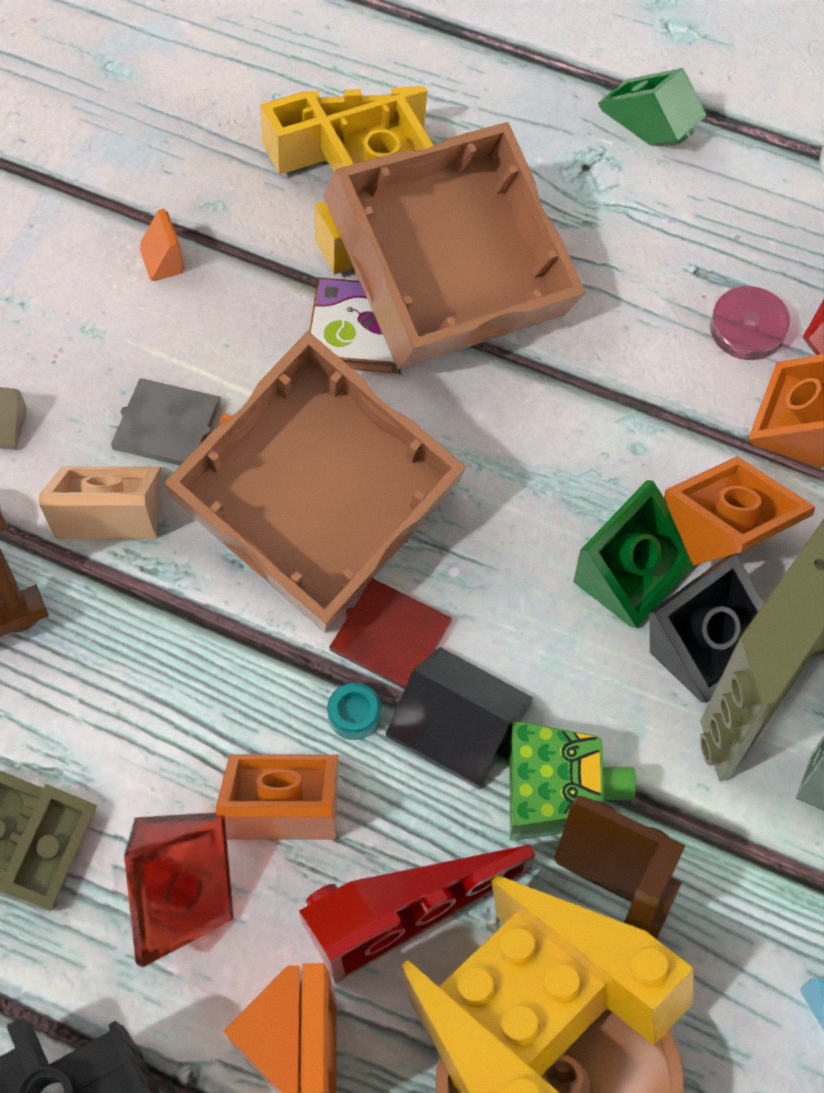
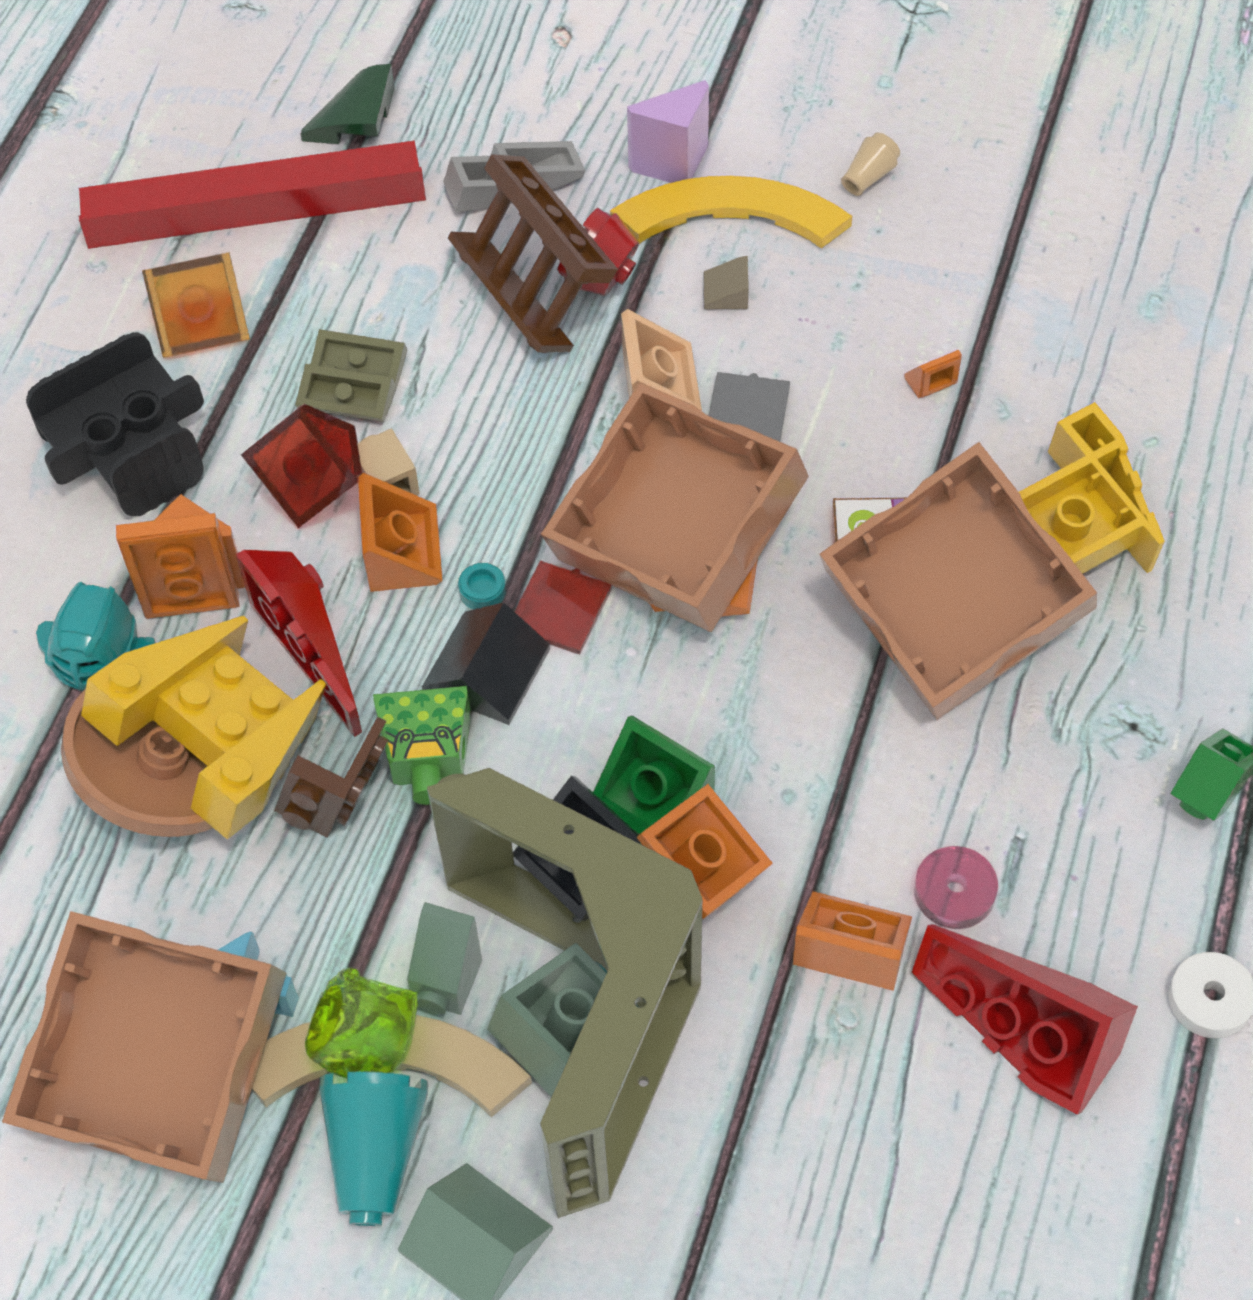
camera: 85 degrees right, 5 degrees down
(176, 791) = (387, 460): none -> tan brick

